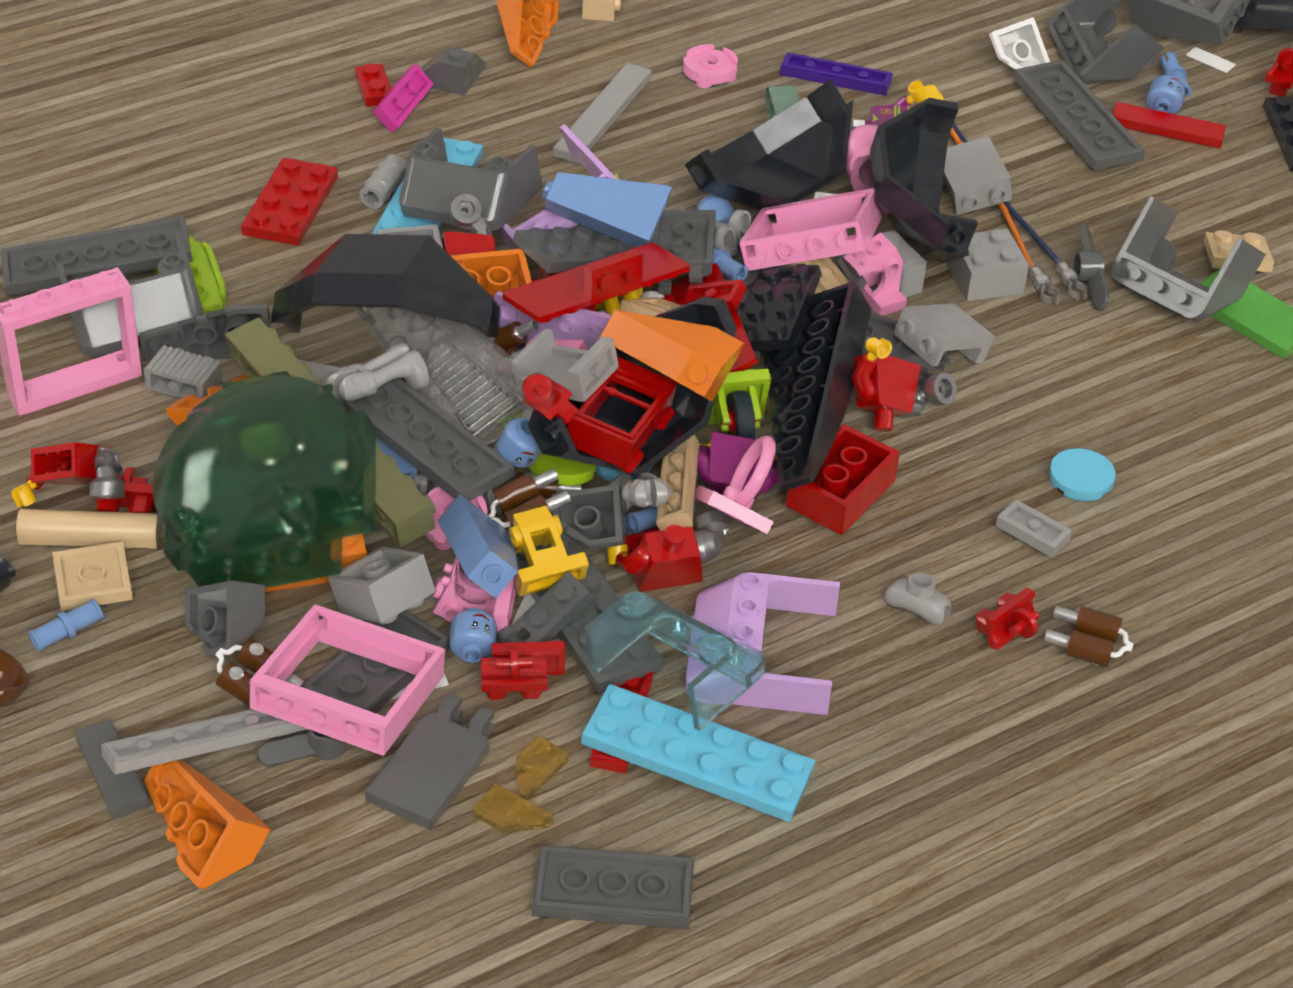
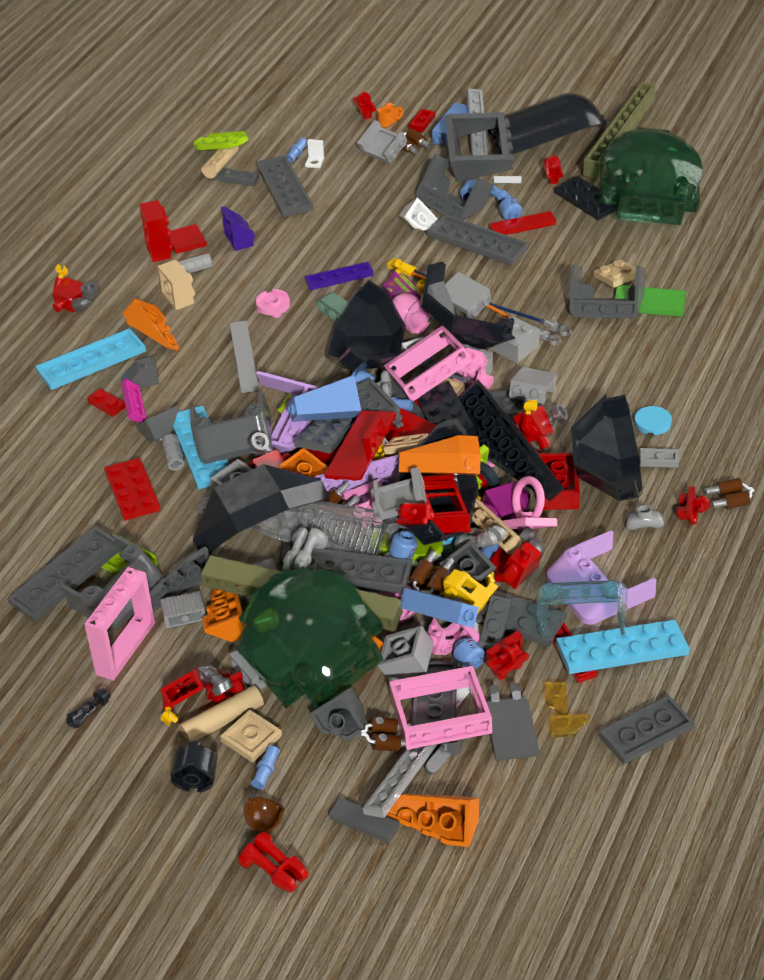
camera: 30 degrees left, 0 degrees up
(399, 137) = (158, 426): none -> dark grey slope
(409, 24) = (90, 359): none -> medium azure plate
(730, 291) = (418, 422): red plate -> none
(947, 472) = (607, 449): none -> black panel
(1091, 268) = (562, 316): dark grey piece -> none

